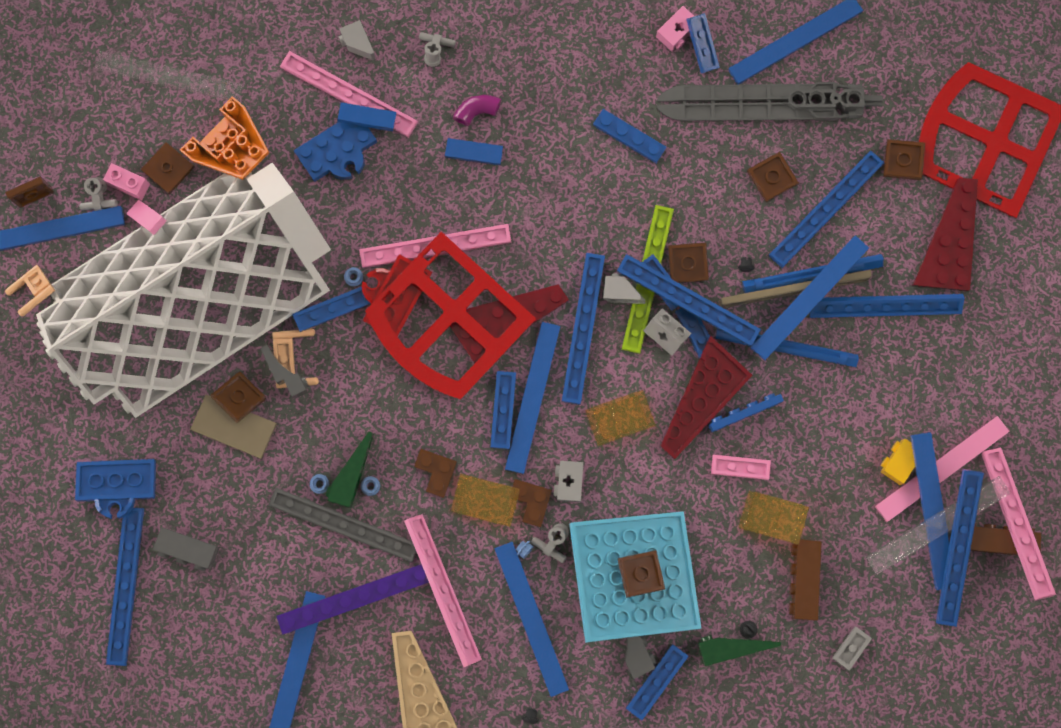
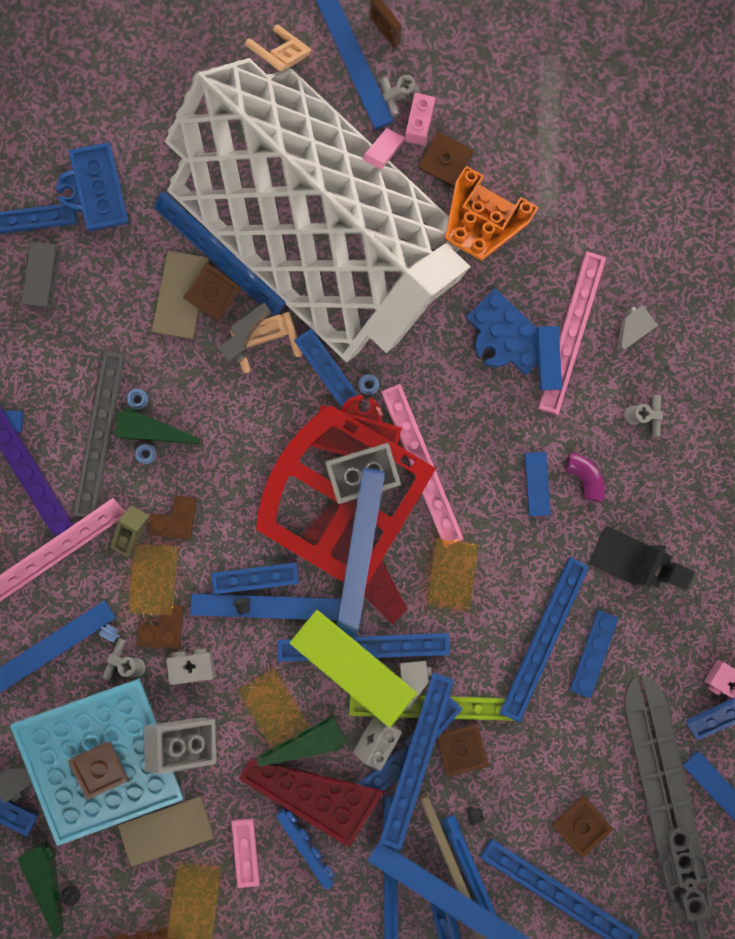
camera: 75 degrees right, 5 degrees up
(203, 384) = (218, 253): none -> blue tile
(432, 291) = (347, 471): none -> light grey brick
(437, 513) = (129, 531): none -> olive slope
(499, 309) = (360, 550): none -> tile
(524, 424) = (242, 604): none -> black piece
(536, 239) = (452, 574): none -> clear yellow piece
(560, 80) = (638, 562): none -> black piece
(598, 337) = (353, 668): none -> lime tile
(608, 174) = (544, 639): none -> blue tile
(634, 499) = (179, 745): none -> light grey brick
(654, 384) = (313, 741): none -> dark green slope
(708, 533) = (166, 831): none -> dark tan tile

